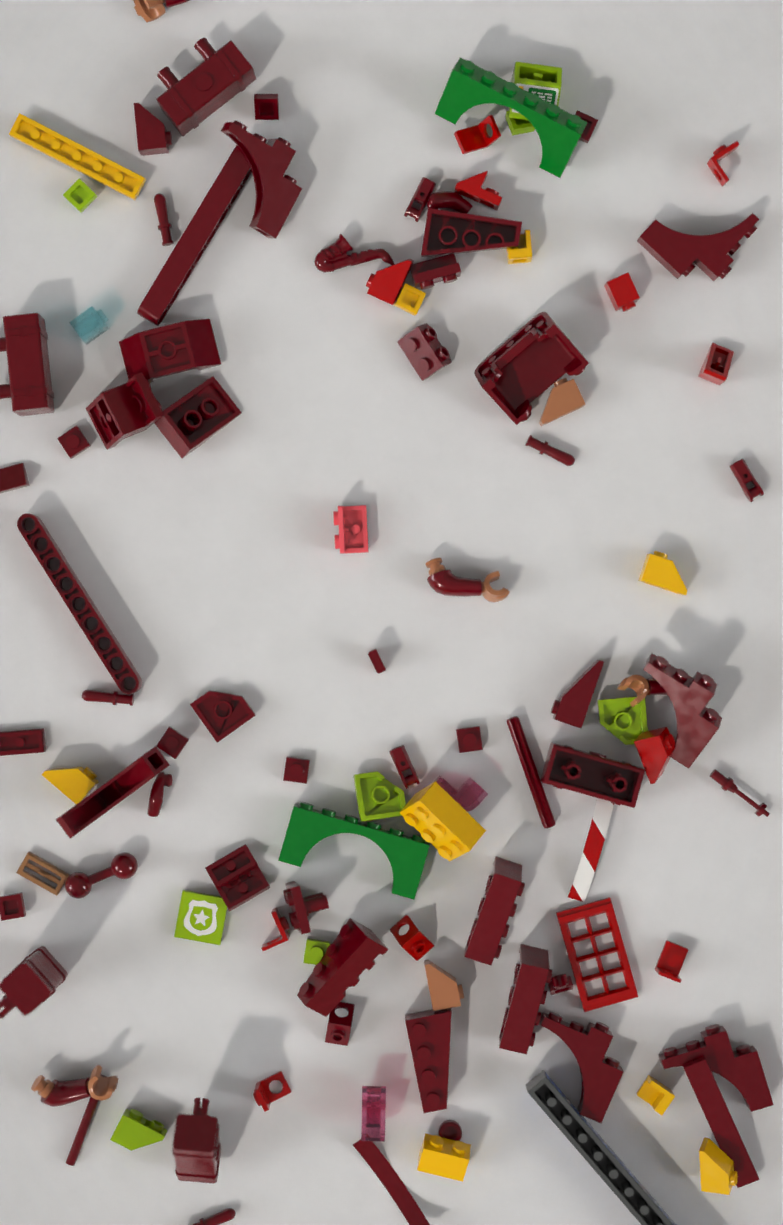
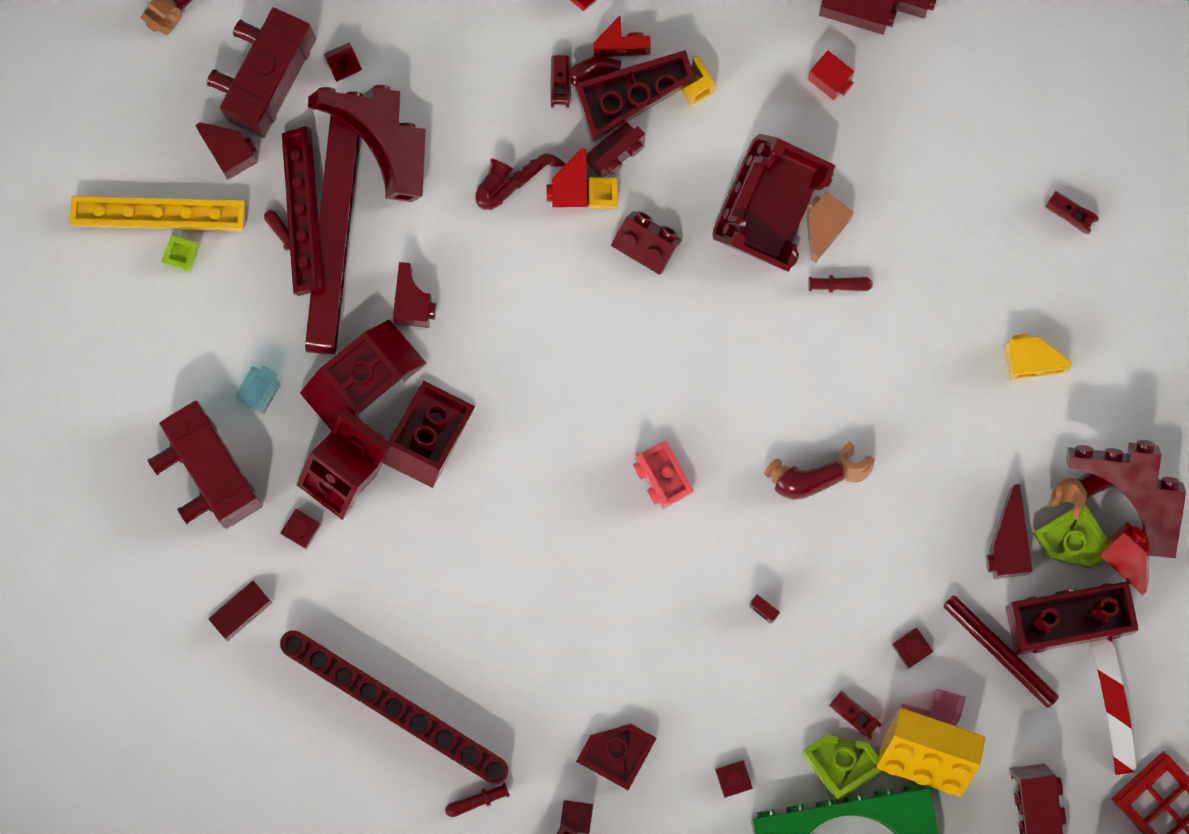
camera: 25 degrees left, 10 degrees down
(182, 206) = (302, 211): none -> dark red tile
(229, 313) = (411, 304): none -> dark red arch
(716, 364) = (974, 104): red slope -> none

